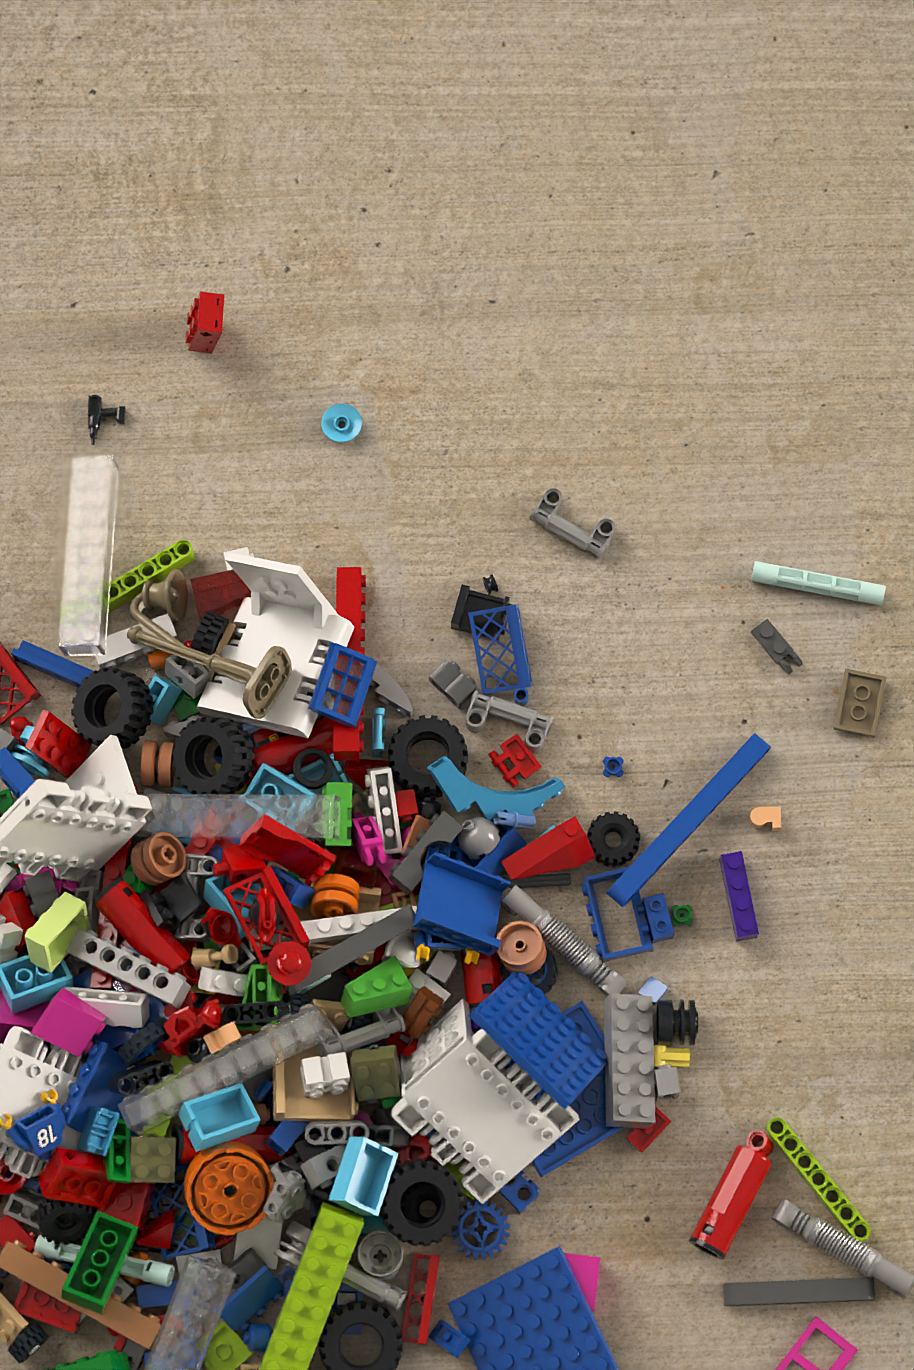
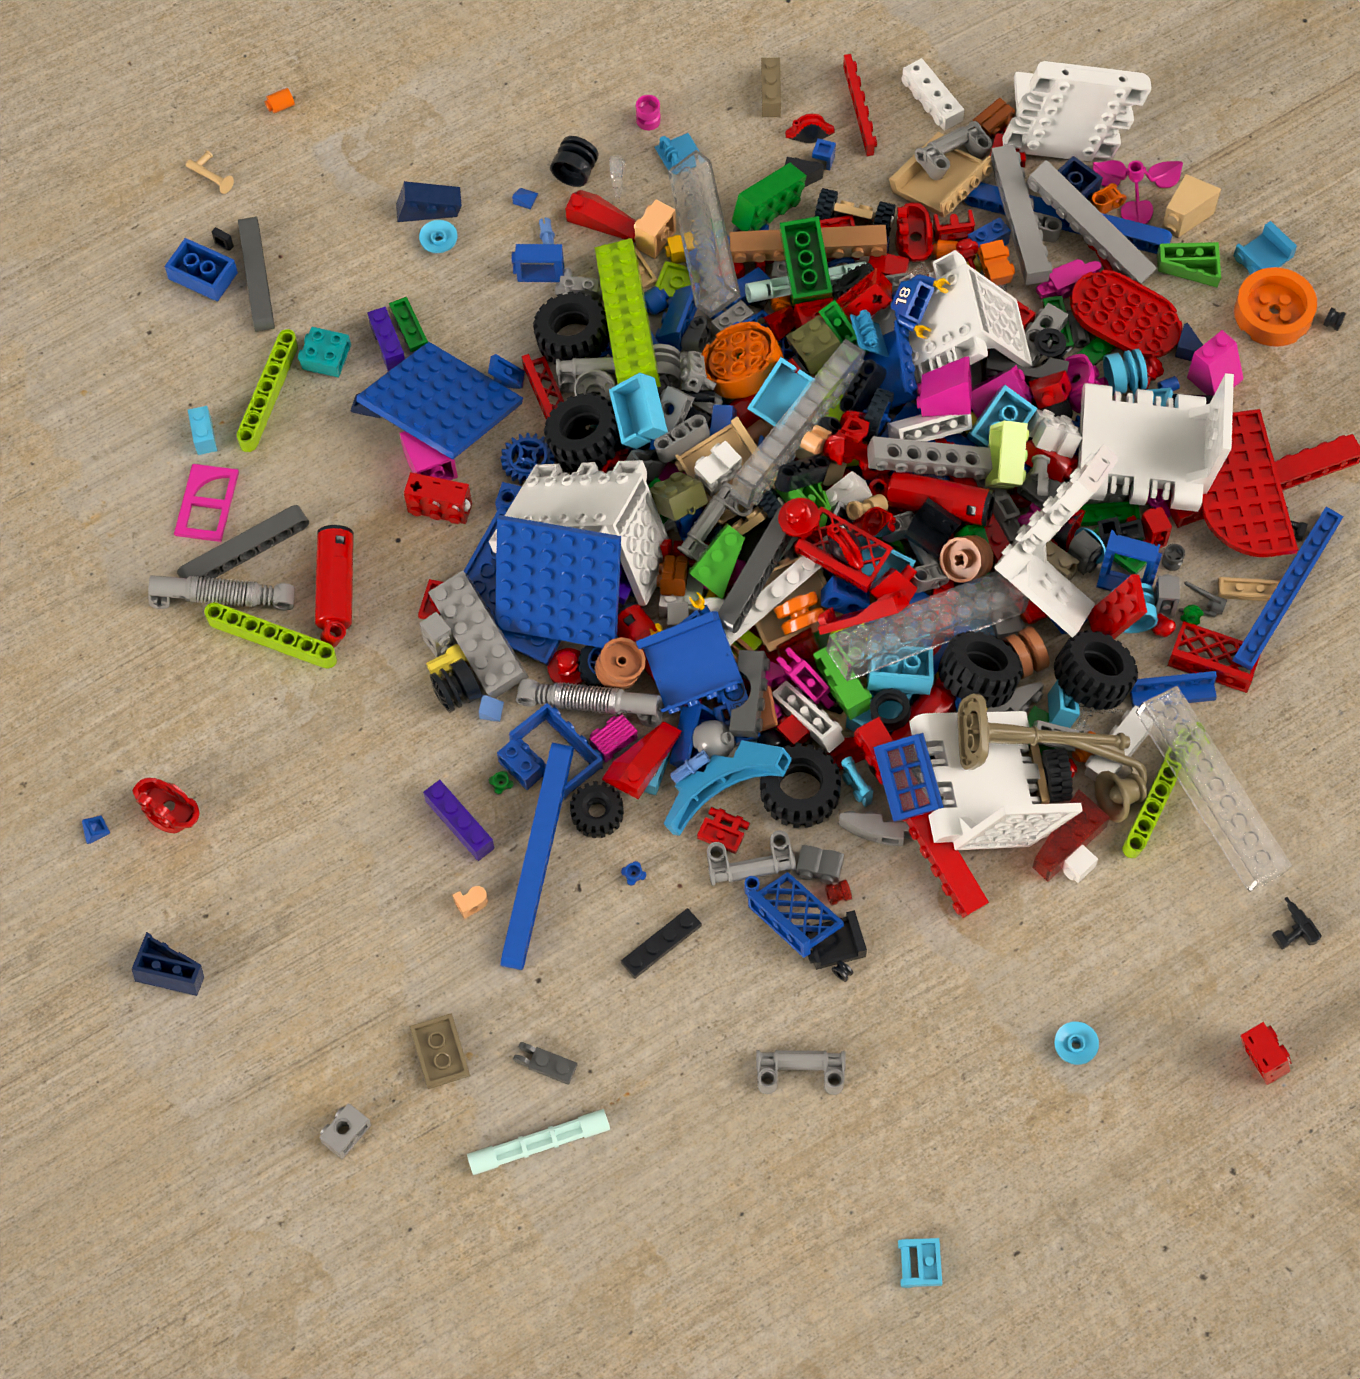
camera: 150 degrees right, 10 degrees down
(37, 902) = (1040, 474): none -> light grey connector
(457, 650) = (838, 892): none -> clear red wheel
(562, 898) = (613, 736): none -> dark pink brick
(565, 328) = (927, 1260): none -> medium azure plate
(566, 990) = (564, 666): none -> red plate
(590, 1227) = (438, 498): none -> red piece
(624, 693) = (661, 943): none -> black plate

